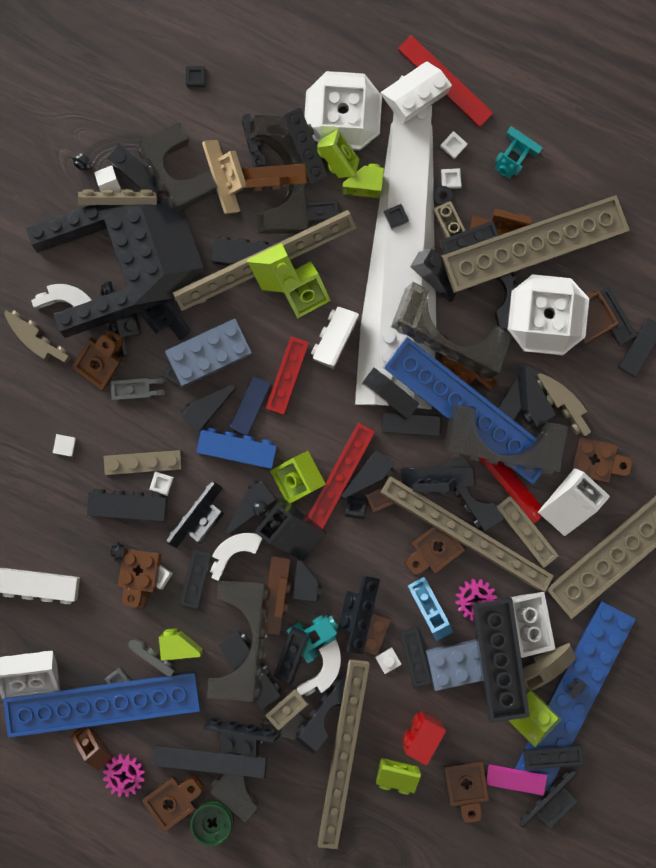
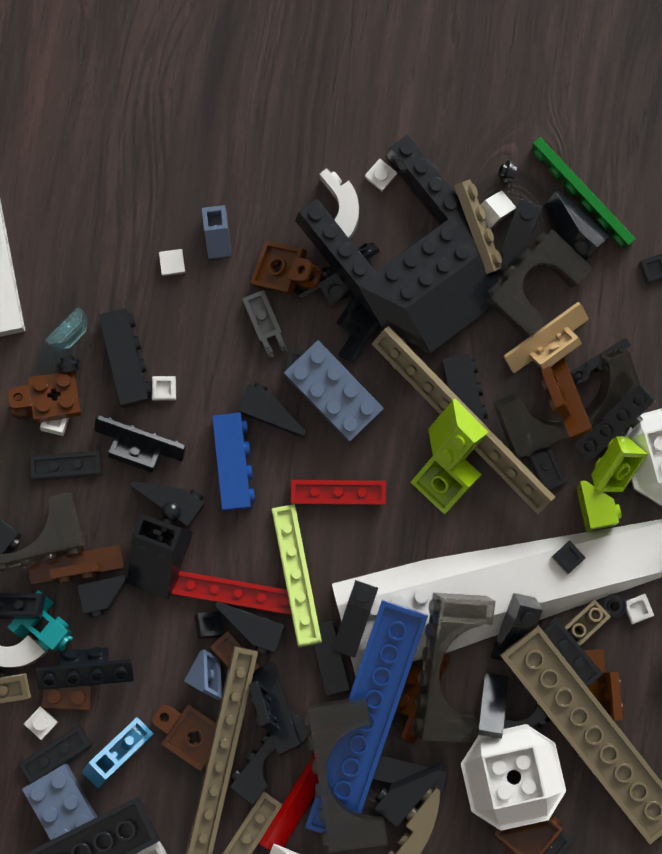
camera: 80 degrees right, 5 degrees down
(30, 334) = (285, 180): dark tan slope -> none
(50, 260) = (381, 175): none -> white plate
(52, 402) = (216, 232): none -> sand blue slope
(91, 542) = (68, 331): none -> clear light blue slope
(124, 107) = (576, 187): none -> green plate
(141, 124) = (575, 225): none -> black slope
(142, 462) = (181, 358): dark tan plate -> none
(240, 542) = (124, 502): white arch -> none
(250, 405) = (288, 461): dark blue tile -> none
(297, 477) = (222, 544): lime slope -> none
(334, 337) = (401, 532): white slope -> none
(341, 428) = (296, 576): none -> yellowish green tile
(394, 522) = (206, 674): none -> sand blue slope
(474, 591) = (160, 796): dark pink gear -> none
(489, 311) = (493, 705): none -> tile

